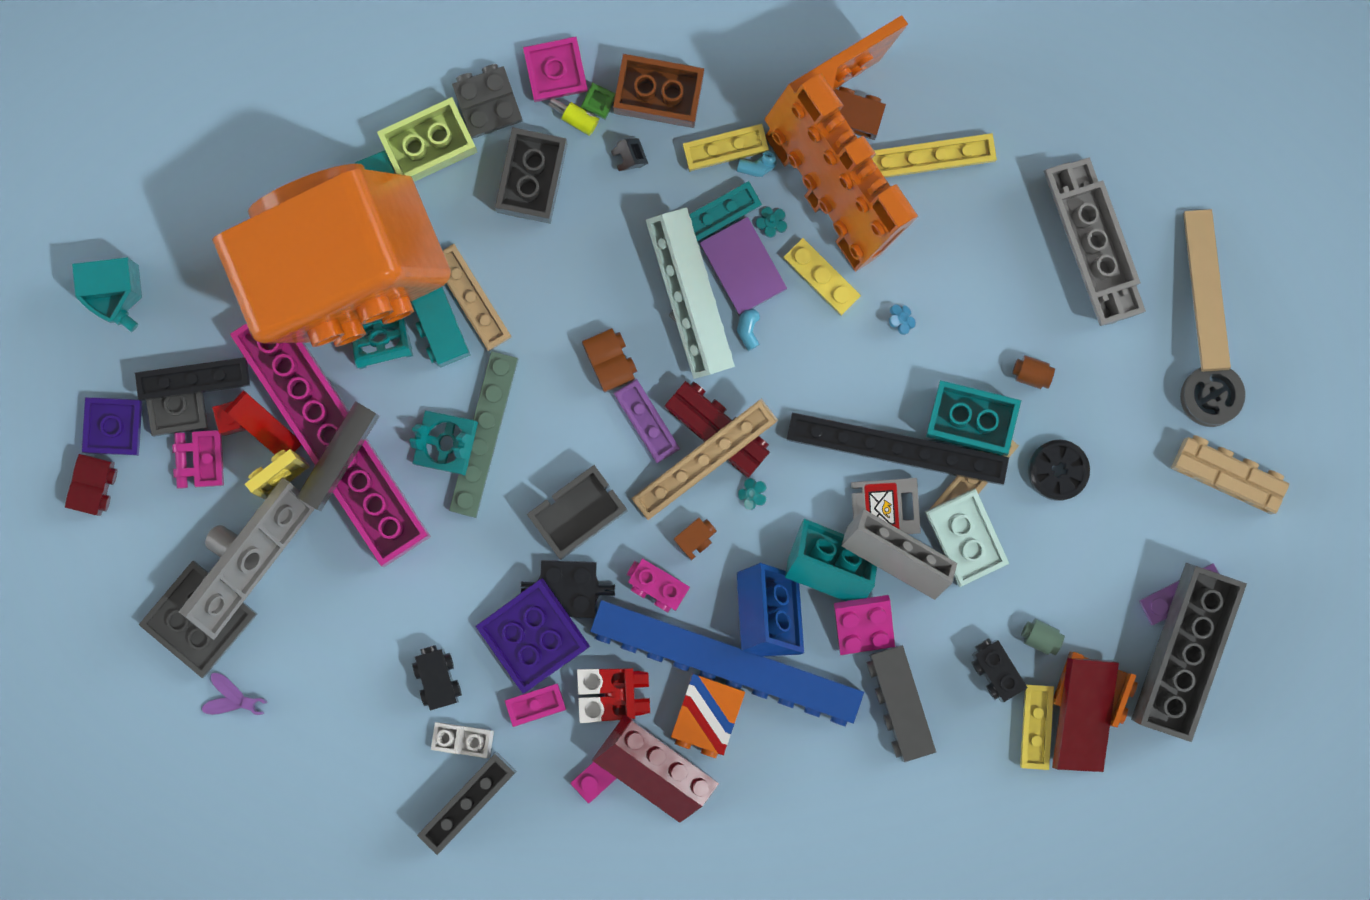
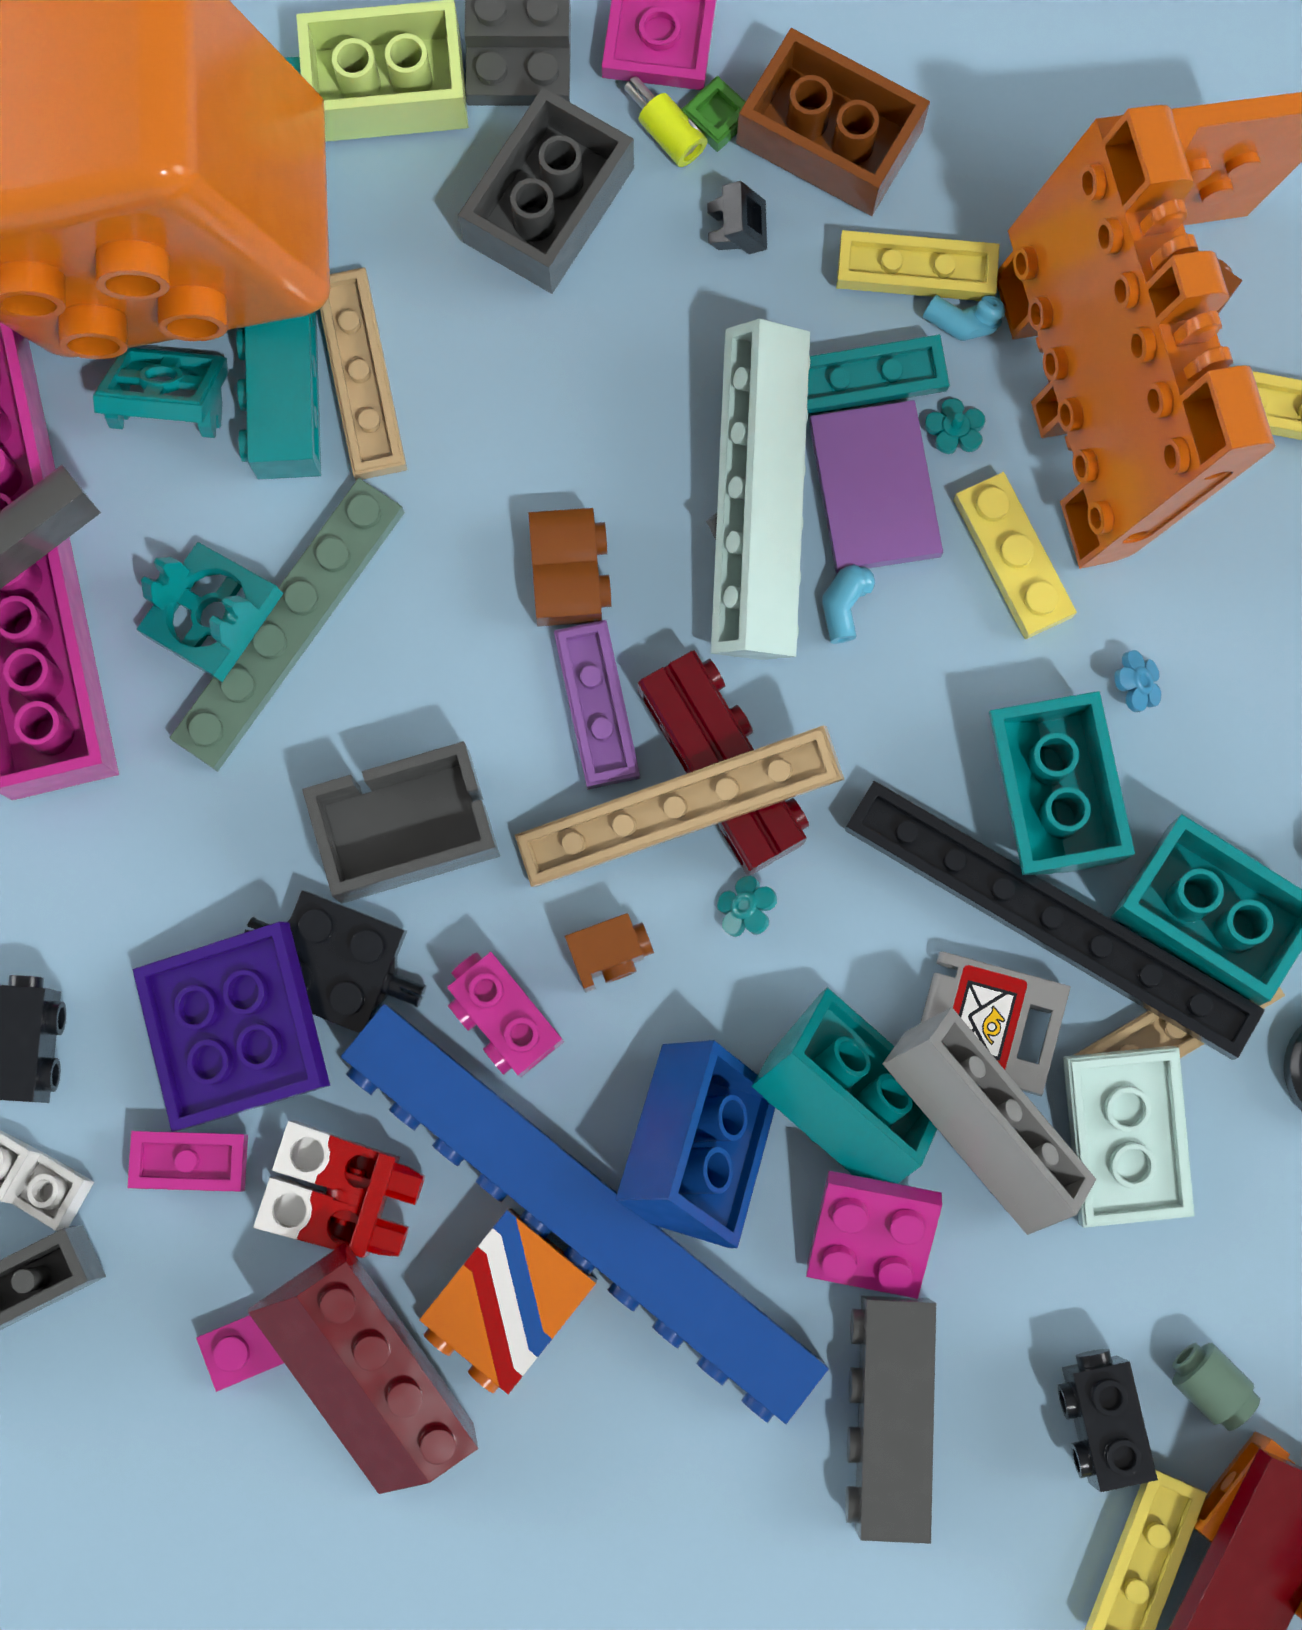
camera: 25 degrees right, 5 degrees down
(880, 385) = (1062, 784): none -> teal slope

